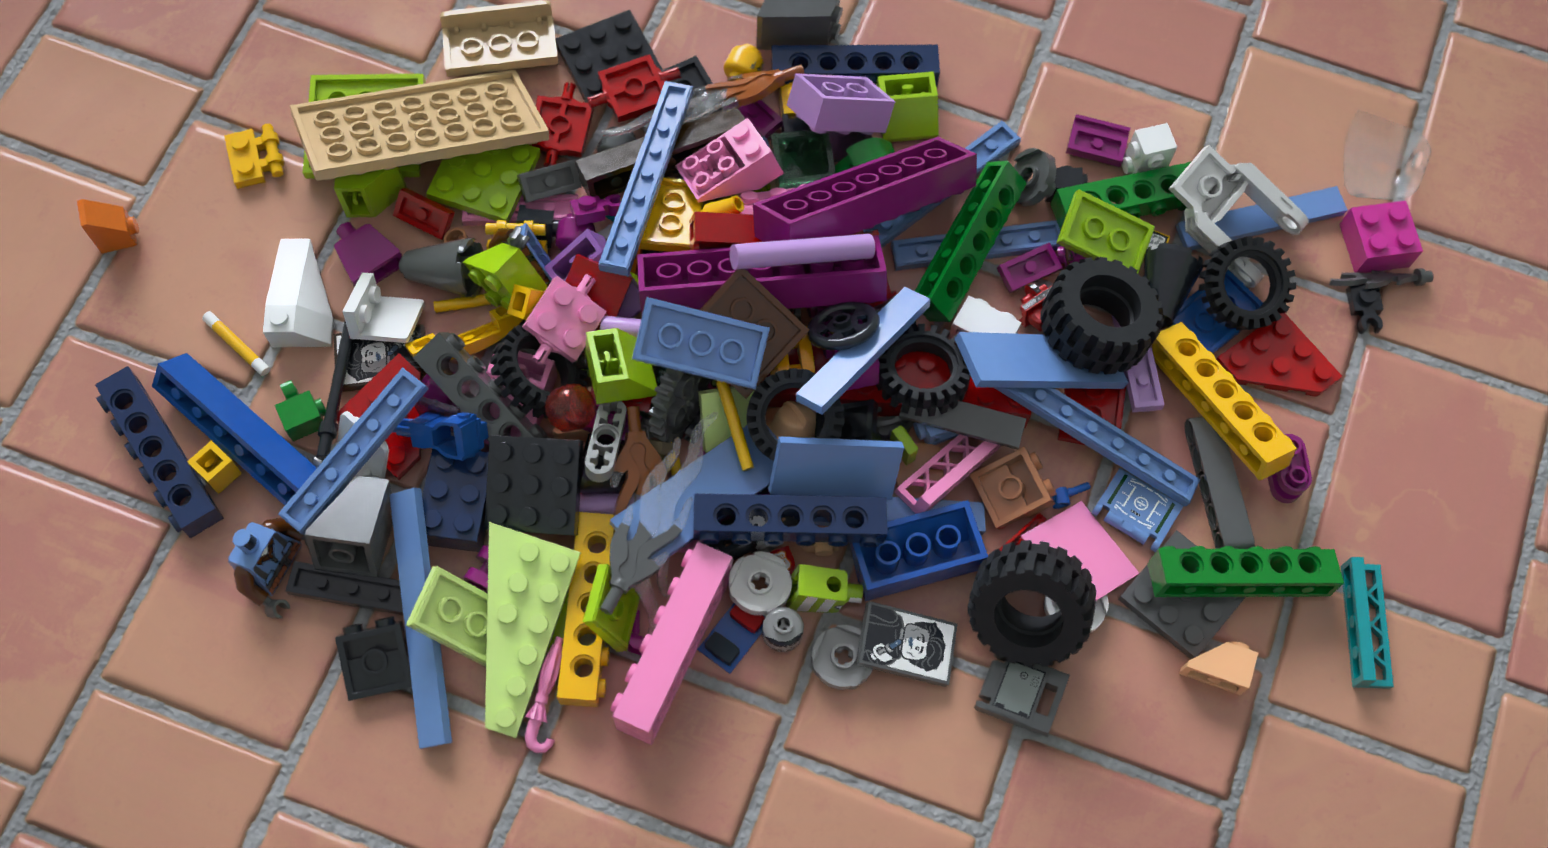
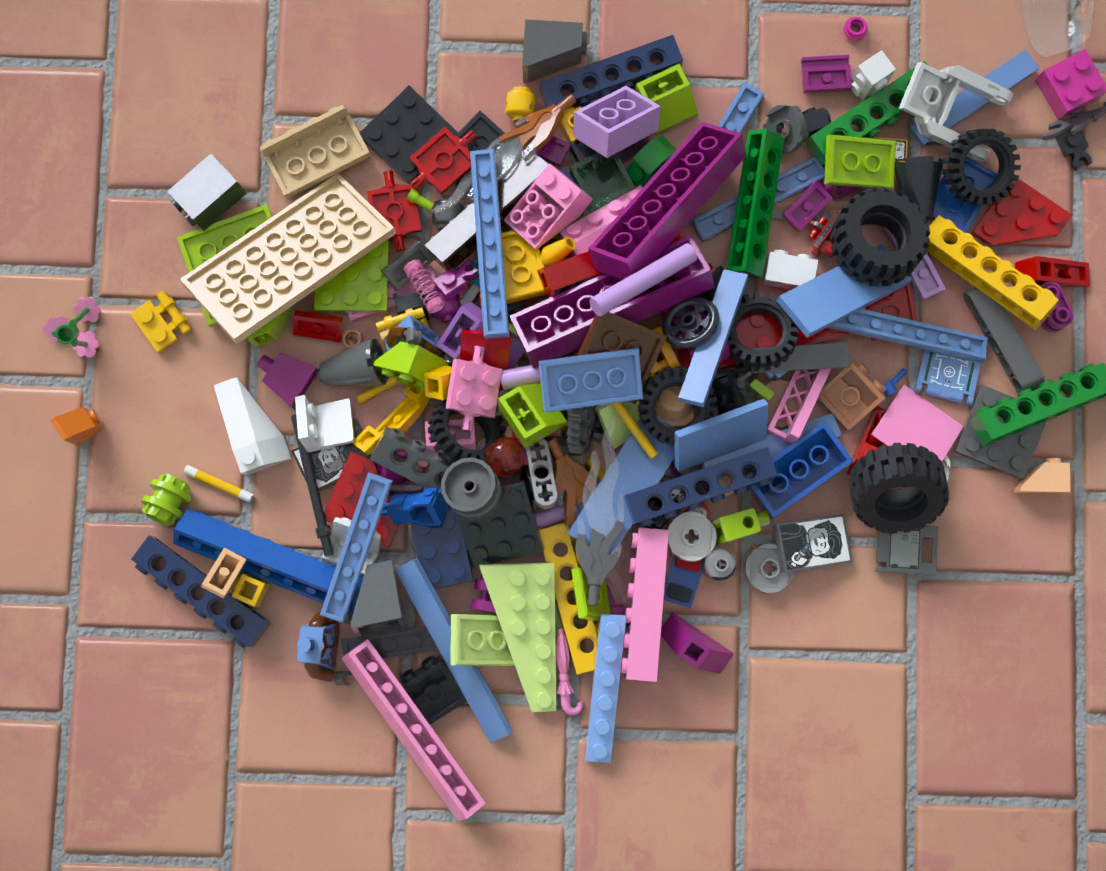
camera: 15 degrees left, 15 degrees up
(144, 125) = (68, 333): none -> bright pink plant
(167, 336) = (166, 499): none -> lime piece
(189, 430) = (224, 573): none -> light nougat slope
(299, 412) = (294, 524): green brick -> none
(329, 695) = (413, 731): none -> bright pink brick
(362, 41) = (206, 193): none -> brick
(514, 423) = (471, 489): none -> dark grey wheel
(559, 218) = (412, 269): none -> bright pink piece
(584, 728) = (605, 688): none -> light blue plate
(587, 115) = (415, 197): none -> lime piece
(718, 717) = (695, 645): none -> magenta slope
(1147, 100) = (855, 22): none -> dark pink plate
(1319, 438) = (1061, 271): none -> red slope

